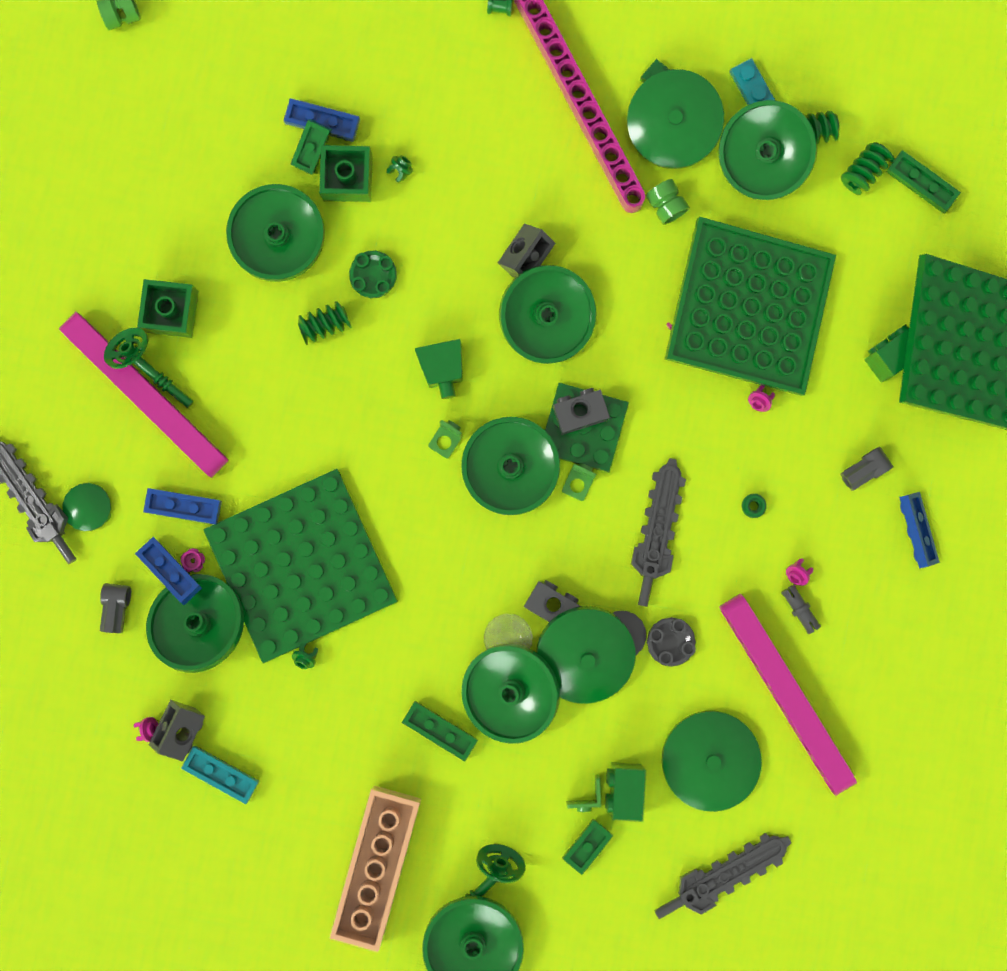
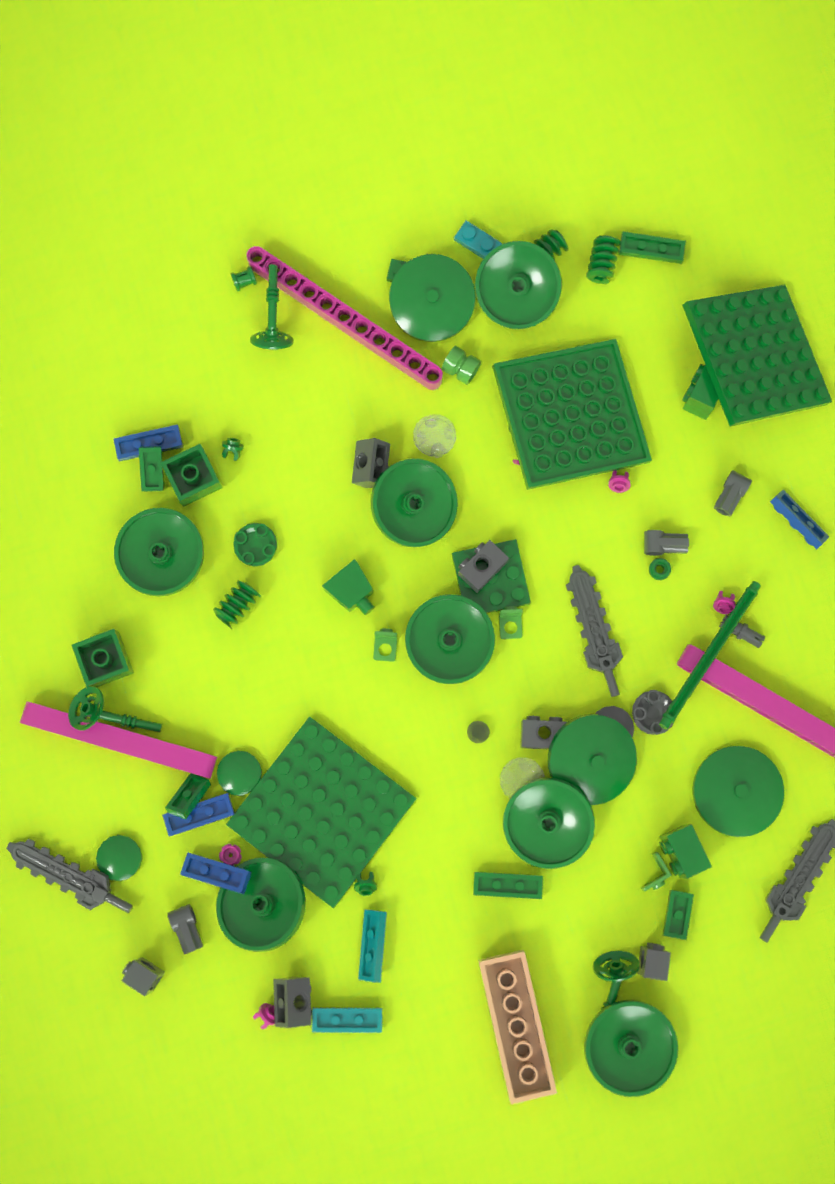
camera: 30 degrees left, 5 degrees down
(48, 630) = (142, 975): none -> dark grey brick
(180, 483) = (188, 796): none -> green plate
(241, 487) = (239, 773): none -> green dish
(280, 718) = (372, 946): none -> teal plate
(490, 569) = (478, 732): none -> clear smoke plate
(495, 77) = (271, 339): none -> green dish
(538, 879) = (654, 962): none -> dark grey brick
(604, 258) = (434, 435): none -> clear dish
(755, 616) = (709, 656): none -> green piece
(766, 479) = (658, 543): none -> dark grey piece

